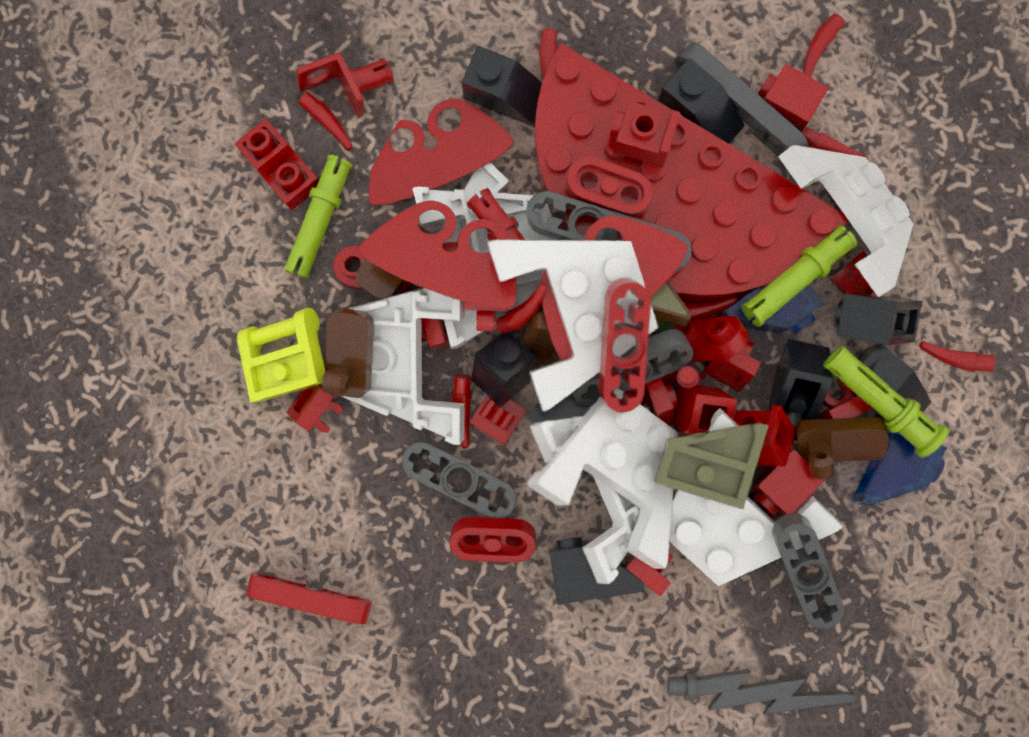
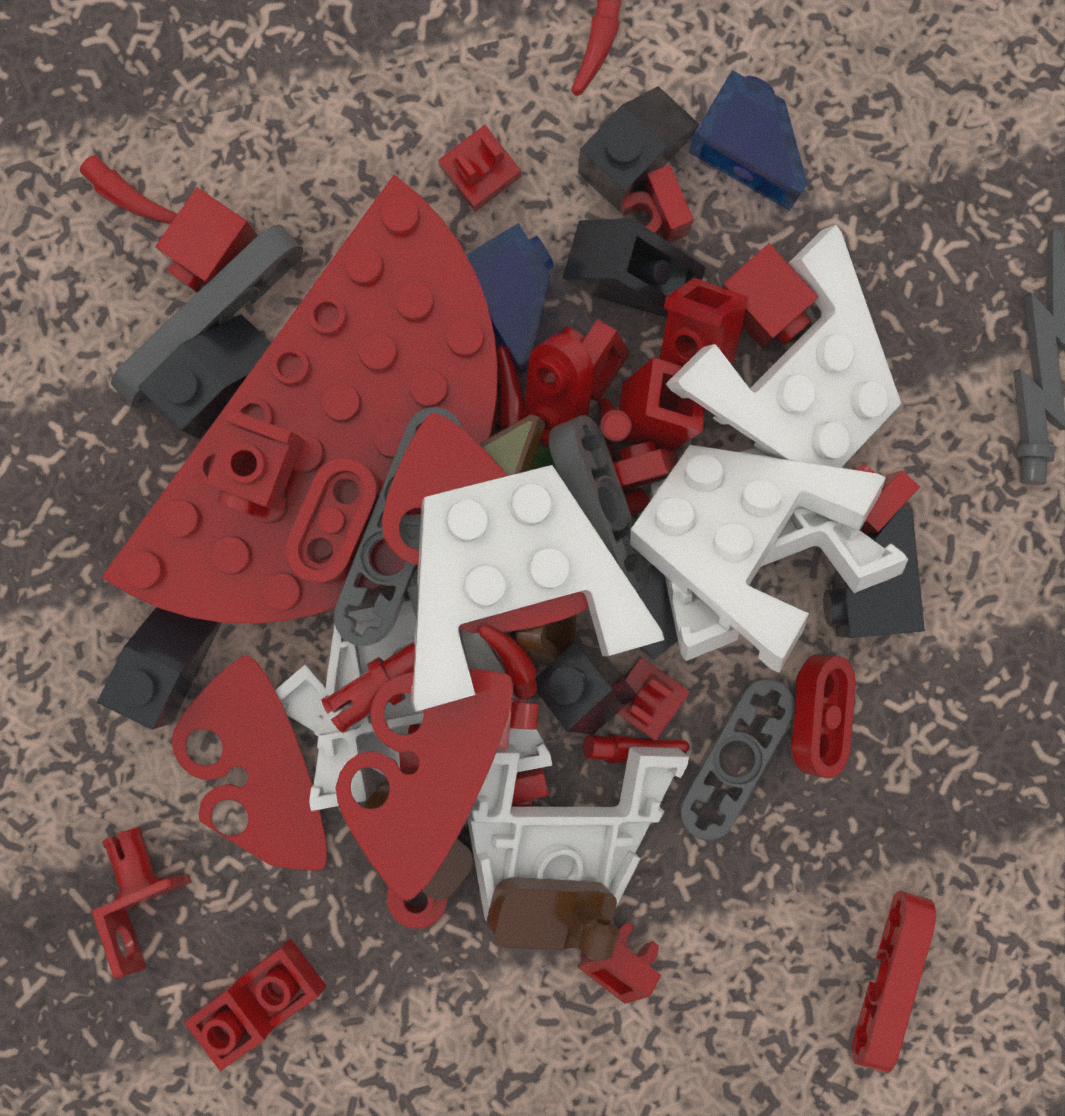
camera: 85 degrees left, 5 degrees up
(284, 369) = (568, 1009): neon yellow plate -> none
(317, 218) = (339, 948): lime pin -> none
(322, 114) = (184, 933): red helmet -> none
(547, 49) = (104, 595): red helmet -> none
(639, 314) = (554, 529): red beam -> none
(713, 463) = (748, 399): olive wing -> none
(811, 554) = (872, 274): dark grey beam -> none
(813, 265) = (463, 233): lime pin -> none
(825, 142) = (281, 193): red helmet -> none
(839, 440) = (713, 218): reddish brown piece -> none
(867, 204) = (375, 147): white wing -> none
(878, 318) = (542, 148): black slope -> none
(899, 413) = (687, 129): lime pin -> none

